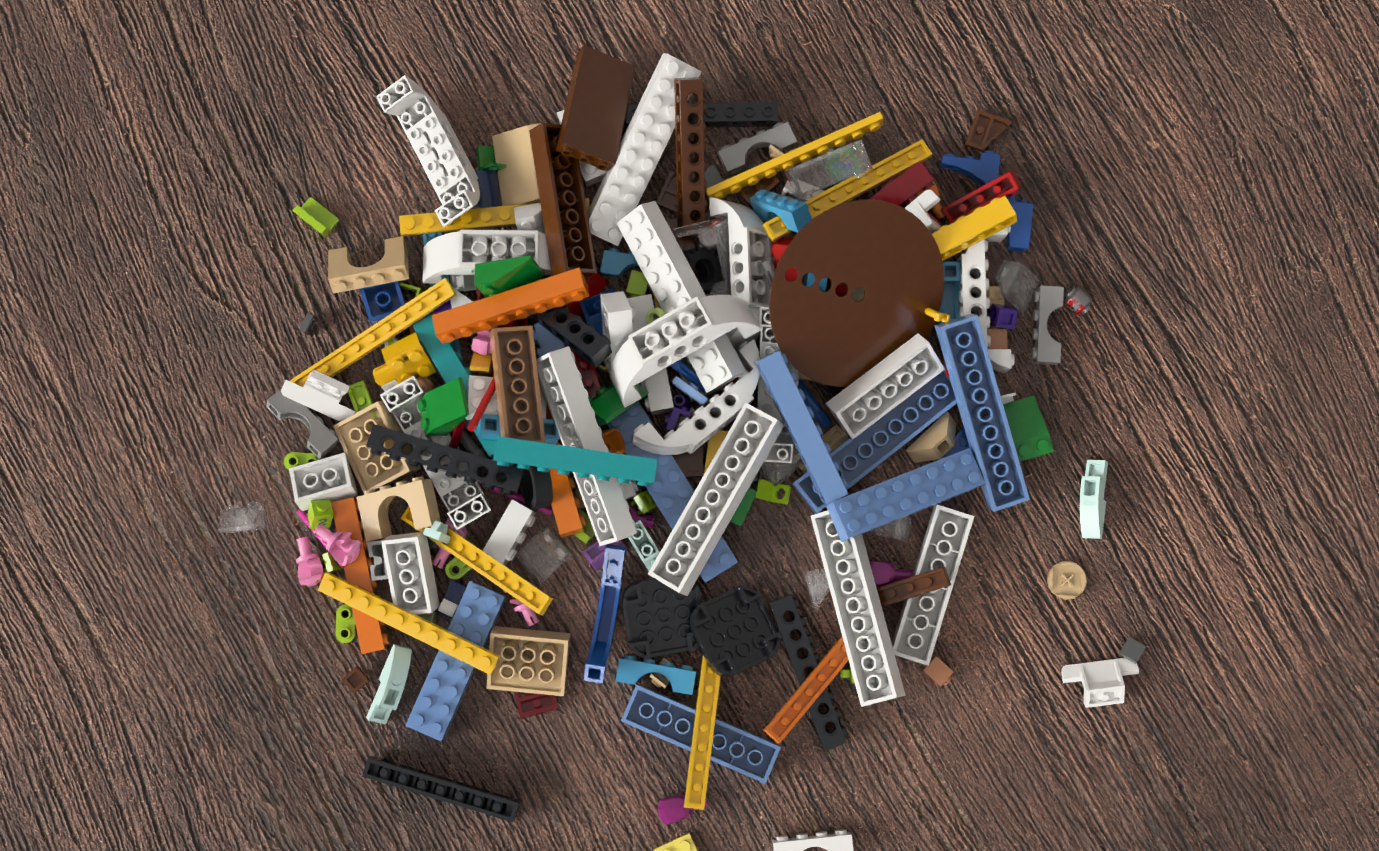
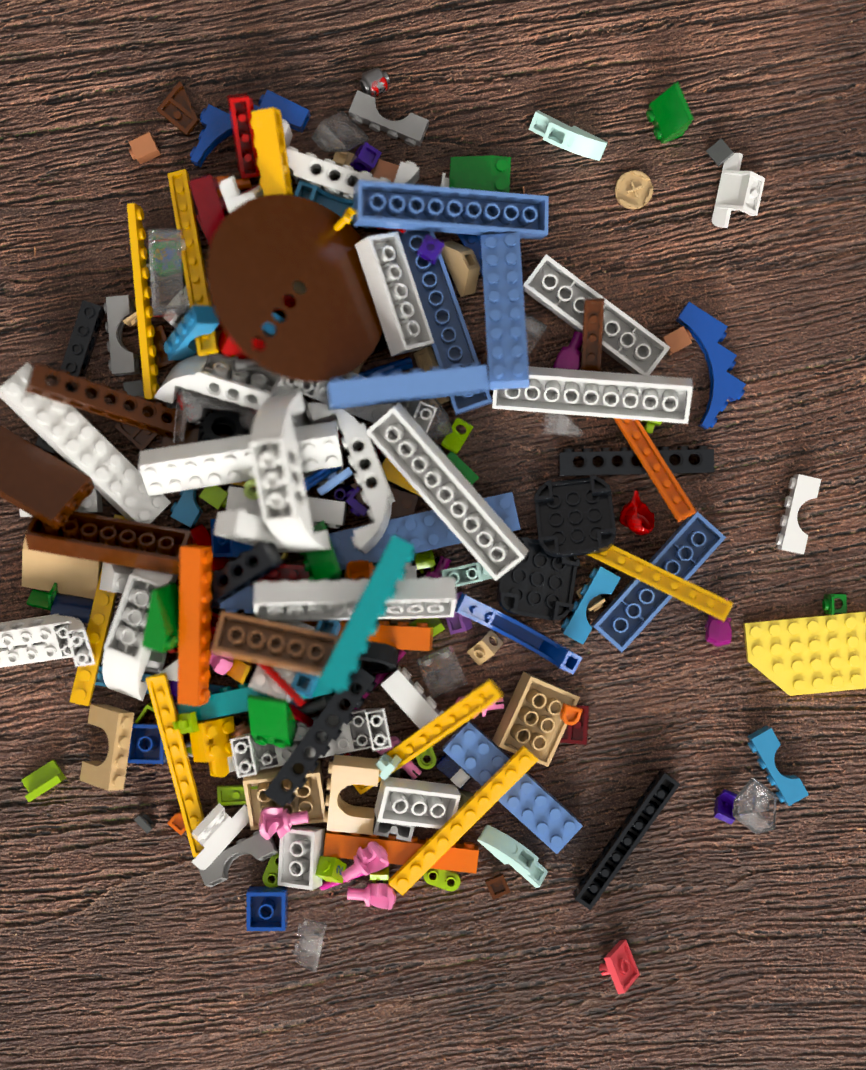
camera: 75 degrees left, 5 degrees up
(263, 466) = (266, 908): none -> blue brick
(316, 355) = (177, 823): none -> orange tile
(316, 826) = (620, 966): none -> coral tile
(351, 449) = (279, 820): none -> bright pink piece
(415, 330) = (186, 723): none -> lime tile
(544, 692) = (570, 714): none -> orange tile
(578, 588) = (484, 649): none -> tan bracket
(756, 691) = (637, 516): none -> red hair
(911, 731) = (723, 385): none -> blue arch
(937, 110) = (144, 148): none -> nougat brick
(938, 405) = (430, 249): none -> dark purple brick
(1148, 588) = (669, 114): none -> green slope

